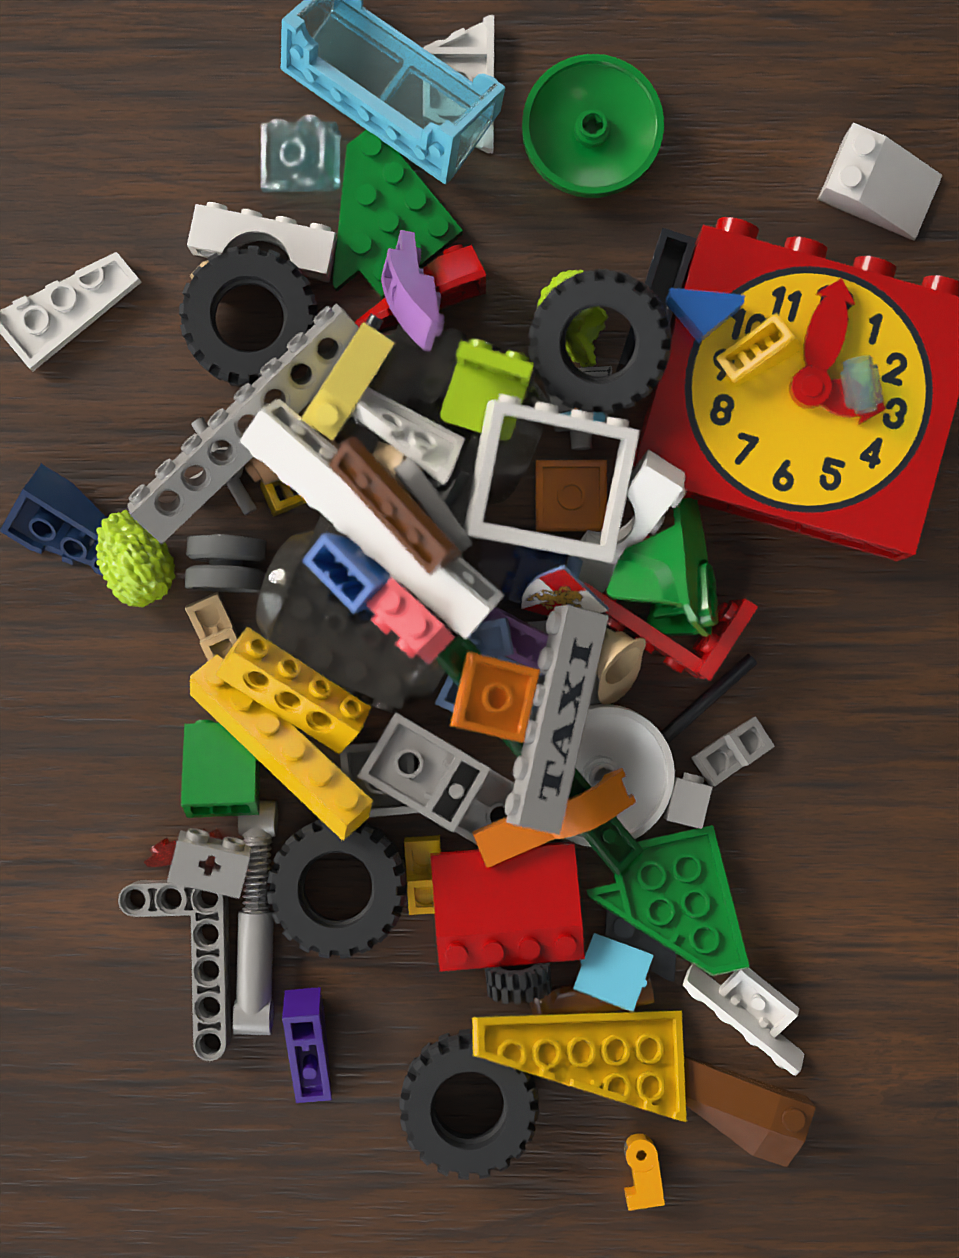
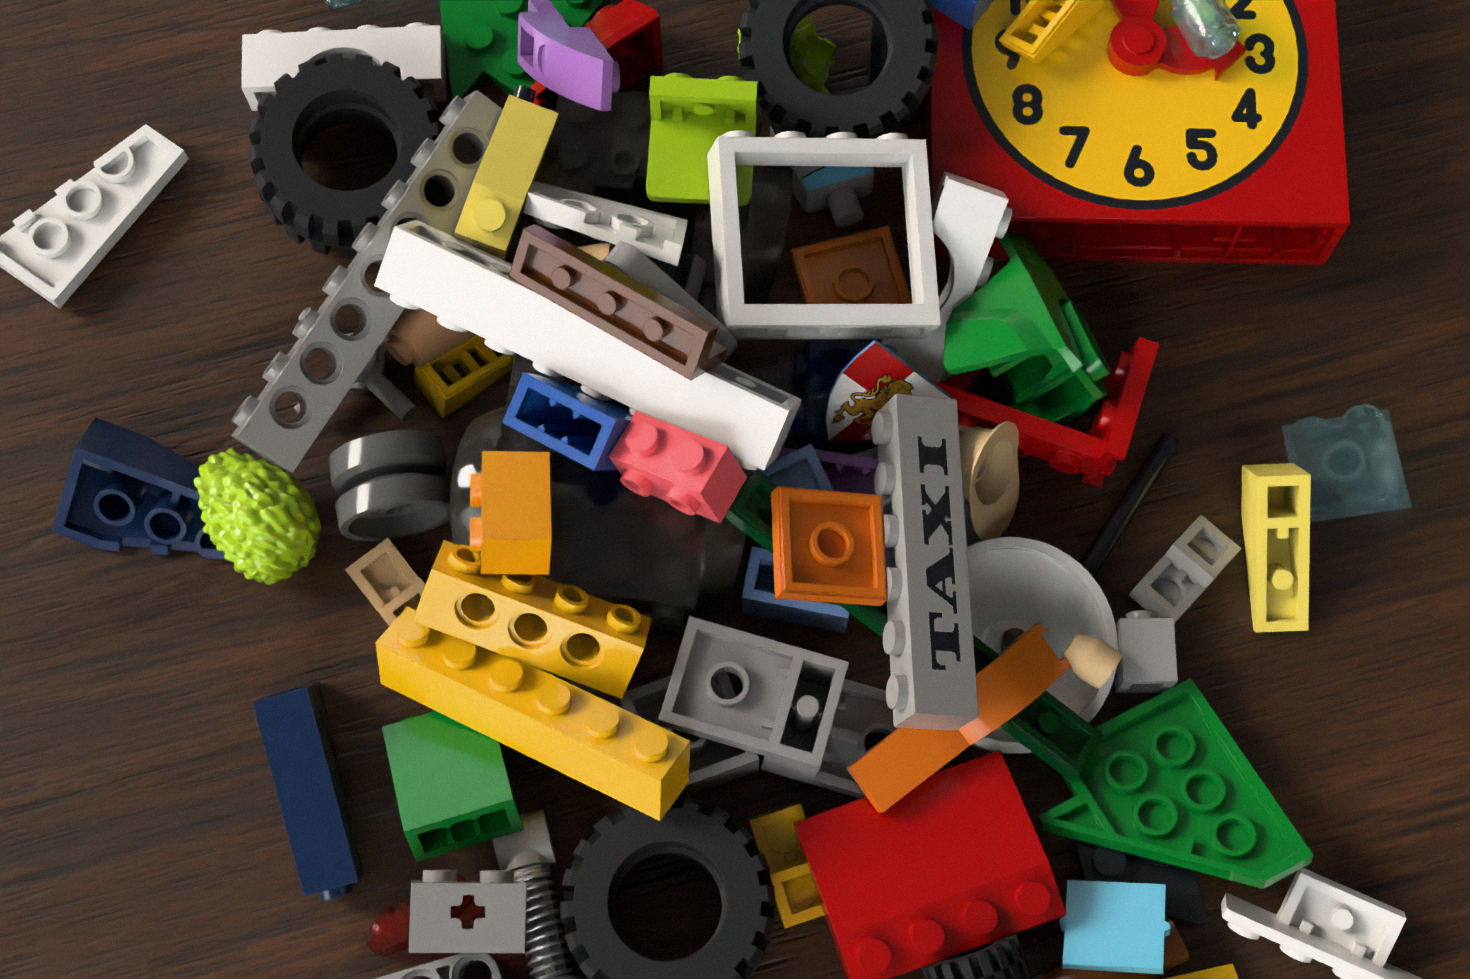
camera: 15 degrees left, 15 degrees down
(130, 747) = (310, 789): none -> dark blue slope
(295, 626) = (514, 512): none -> light orange brick
(650, 801) = (1092, 659): none -> tan hose
(798, 750) = (1277, 545): none -> light yellow slope
(862, 709) = (1350, 463): none -> clear light blue slope

